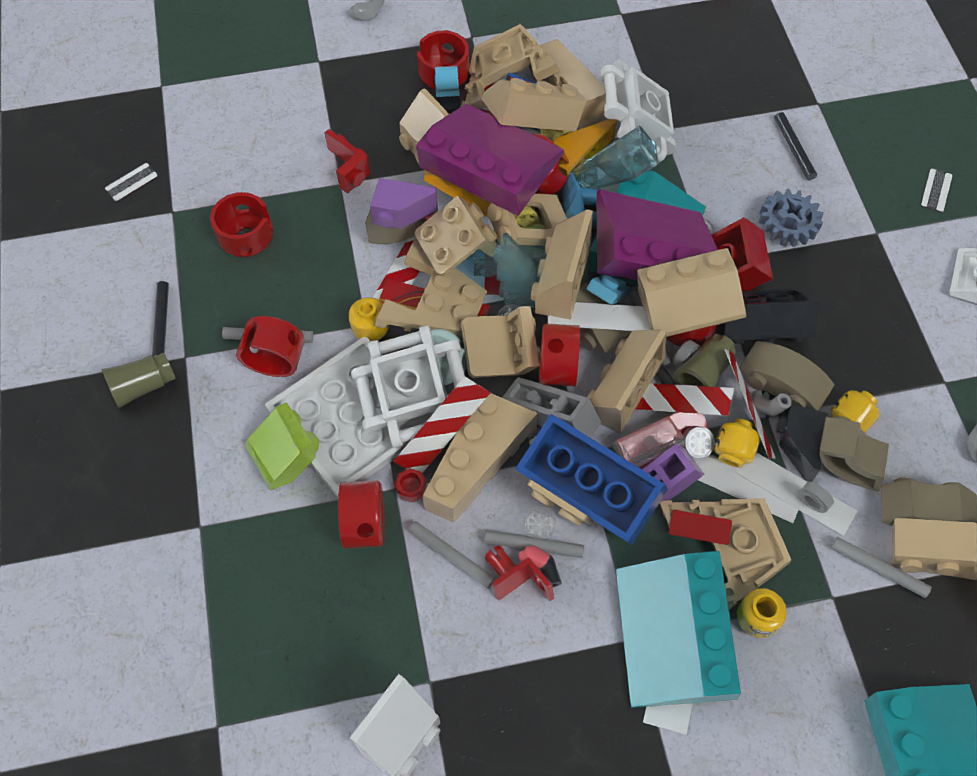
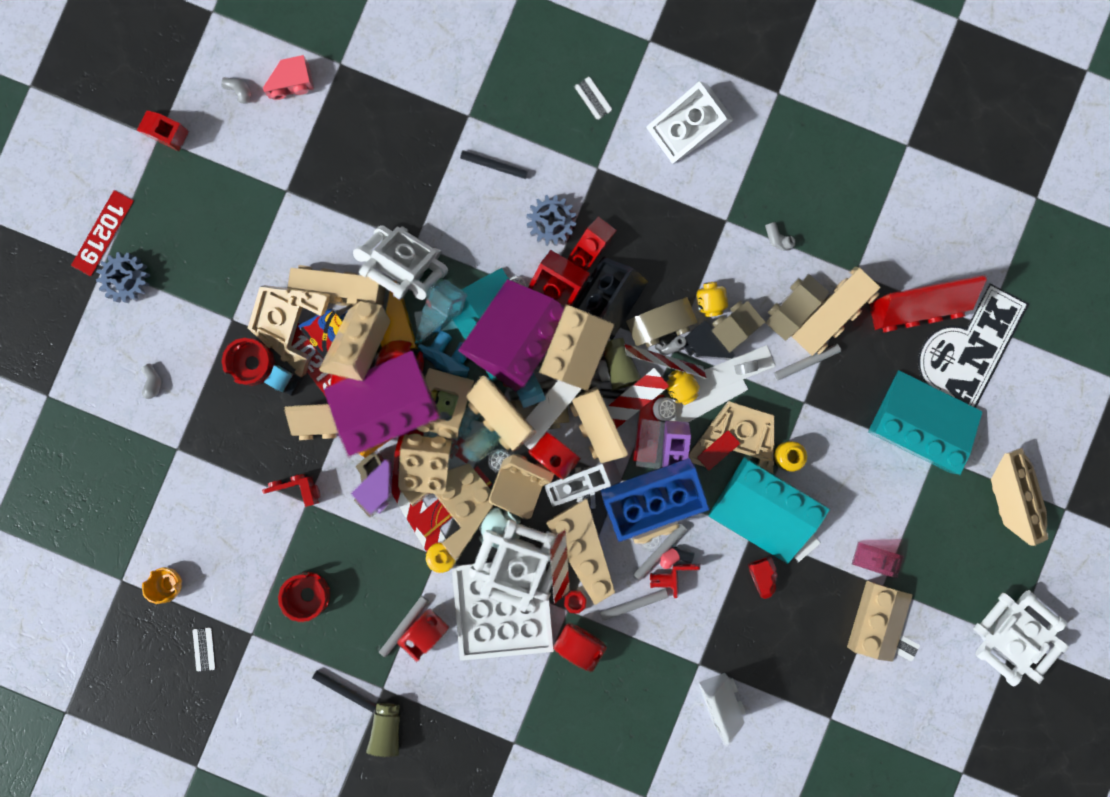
camera: 60 degrees left, 25 degrees up
(176, 111) = (162, 585): none -> light orange hair
(282, 447) = (499, 667): lime slope -> none
(595, 683) = (764, 576): none -> red rock
(803, 265) = (592, 244): none -> red slope

